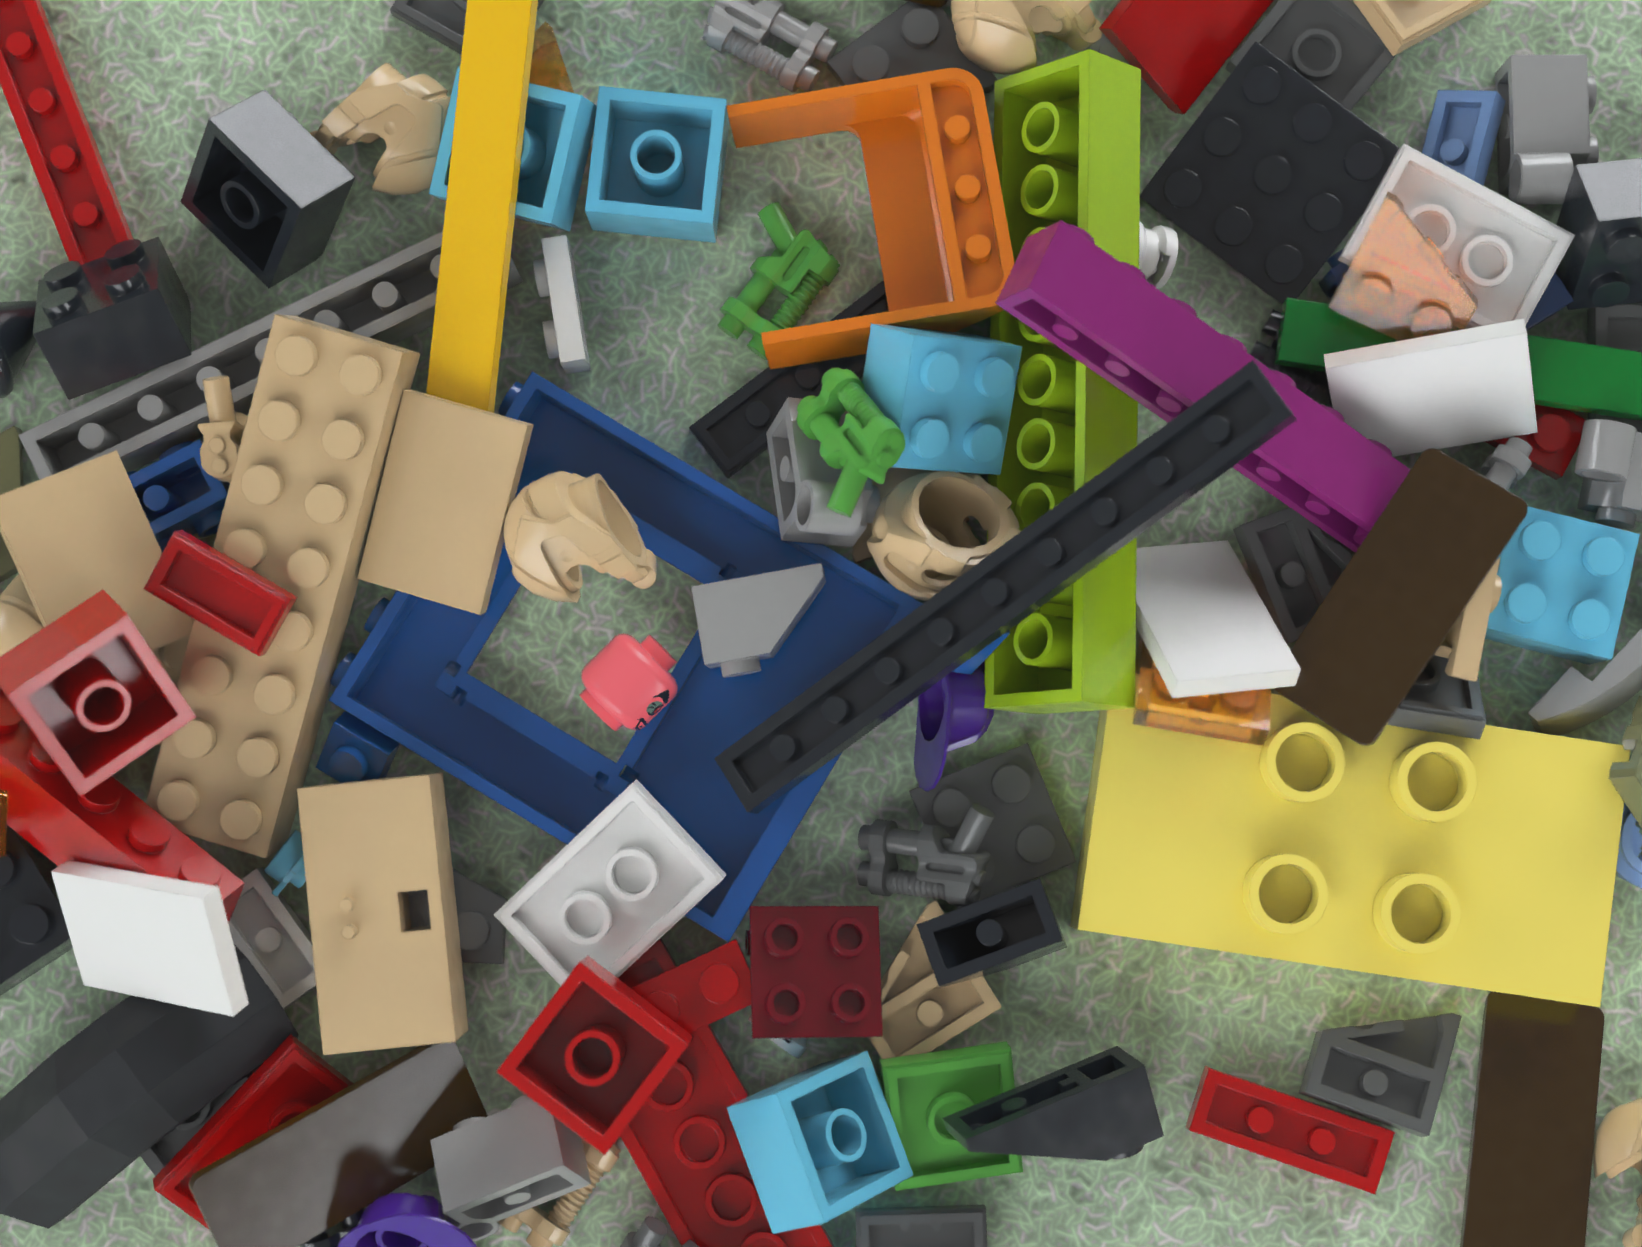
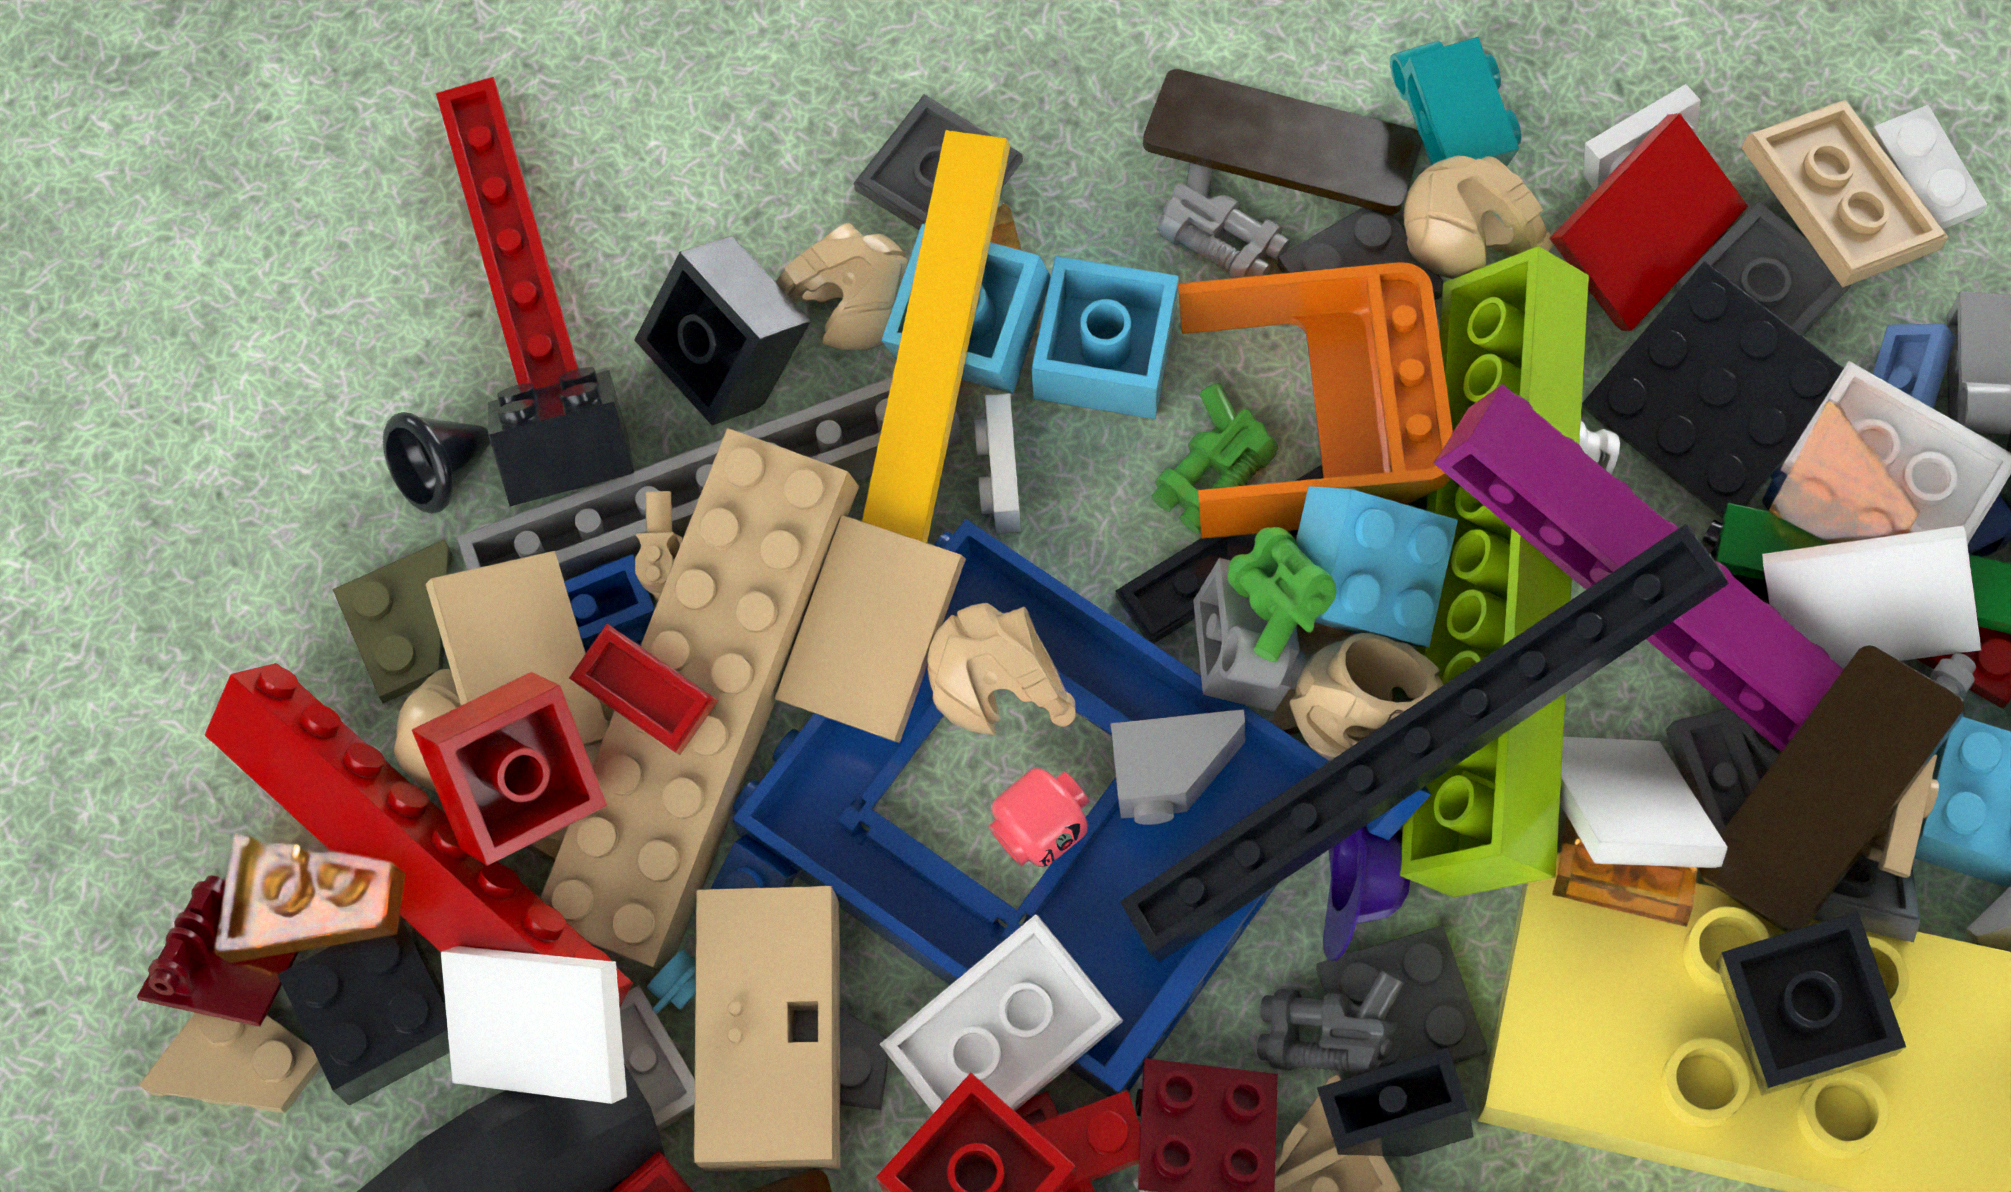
camera: 10 degrees right, 15 degrees down
(1386, 825) = (1810, 1003): none -> black brick

